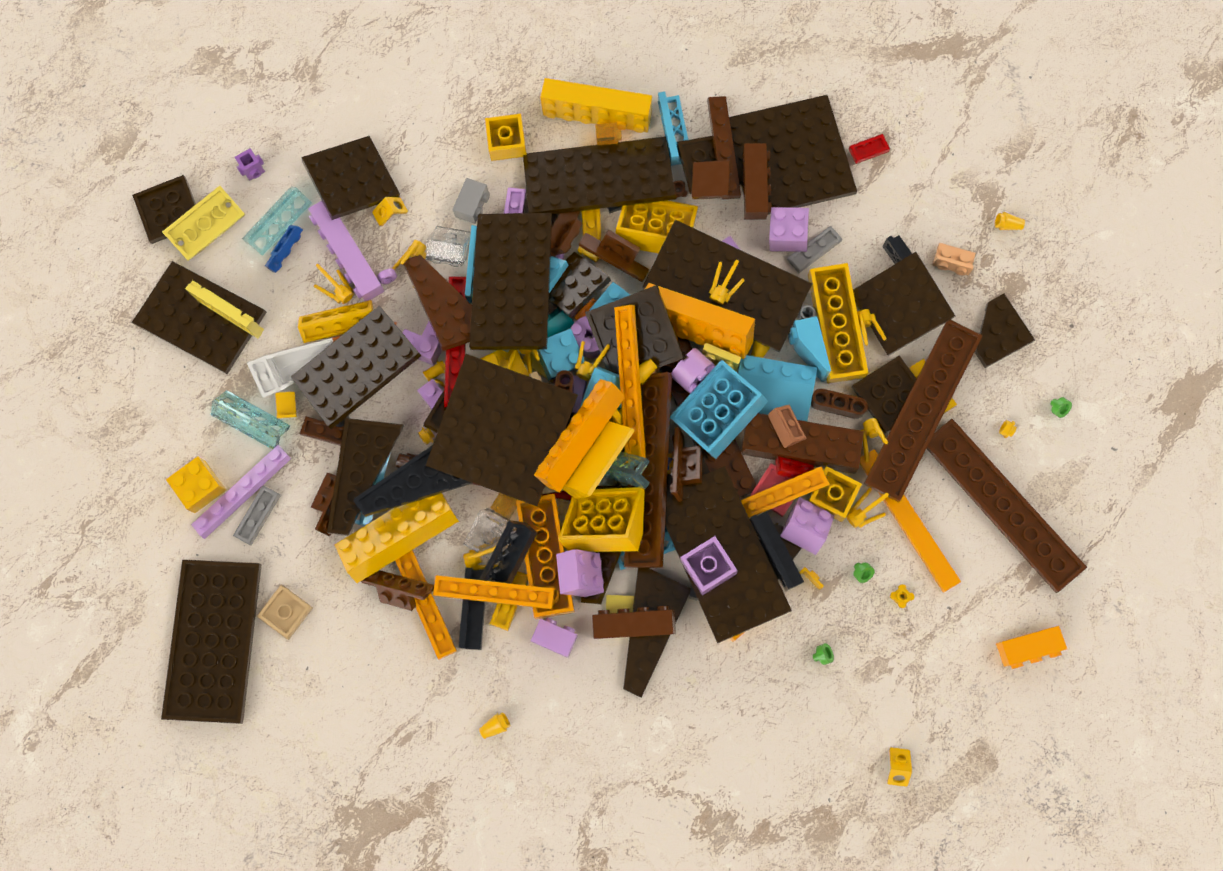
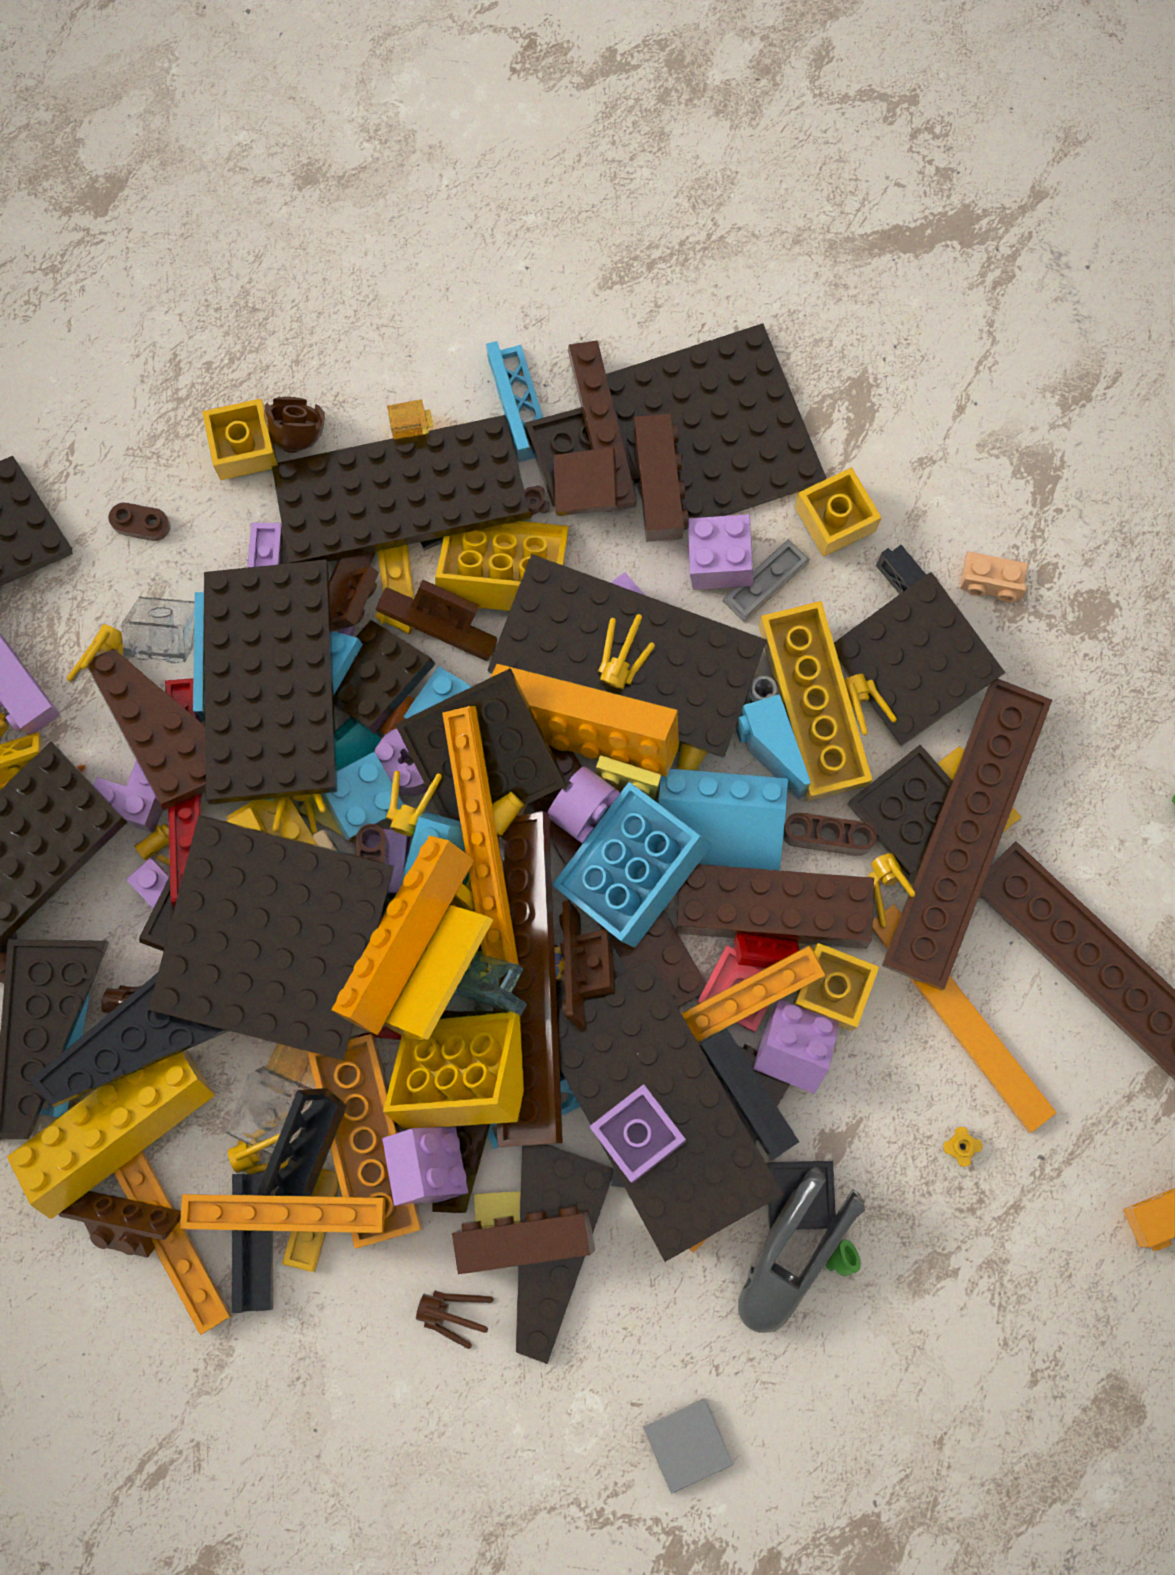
camera: 10 degrees left, 0 degrees up
(387, 208) = (52, 576): yellow bracket -> none
(387, 276) = (61, 689): lavender tile -> none
(426, 435) = (149, 955): yellow plate -> none
(439, 181) = (137, 521): none -> reddish brown plate
(471, 200) = (191, 550): light grey brick -> none
(496, 725) = (306, 1438): yellow cone -> none
(538, 131) = (293, 423): none -> reddish brown cylinder
(554, 637) = (393, 1276): lavender brick -> none
(576, 659) = (434, 1311): none -> reddish brown plant
(596, 105) = (385, 373): yellow brick -> none
(720, 754) = (688, 1445): none -> light grey tile
(780, 670) = (771, 1290): none -> dark grey piece
(786, 426) = (746, 882): nougat slope -> none
(805, 616) = (788, 1177): none -> black tile
(813, 577) = (811, 1128): yellow bracket -> none
(857, 517) = (877, 1020): yellow plant -> none
(862, 211) = (837, 512): none -> yellow brick
(863, 572) = (895, 1112): bright green tile -> none
(869, 148) = (839, 406): red plate -> none
(900, 765) = (986, 1434): yellow bracket -> none
(1001, 331) = (1082, 689): dark brown plate -> none
(1006, 221) = (1076, 507): yellow cone -> none
(1007, 428) = (1107, 849): yellow plate -> none

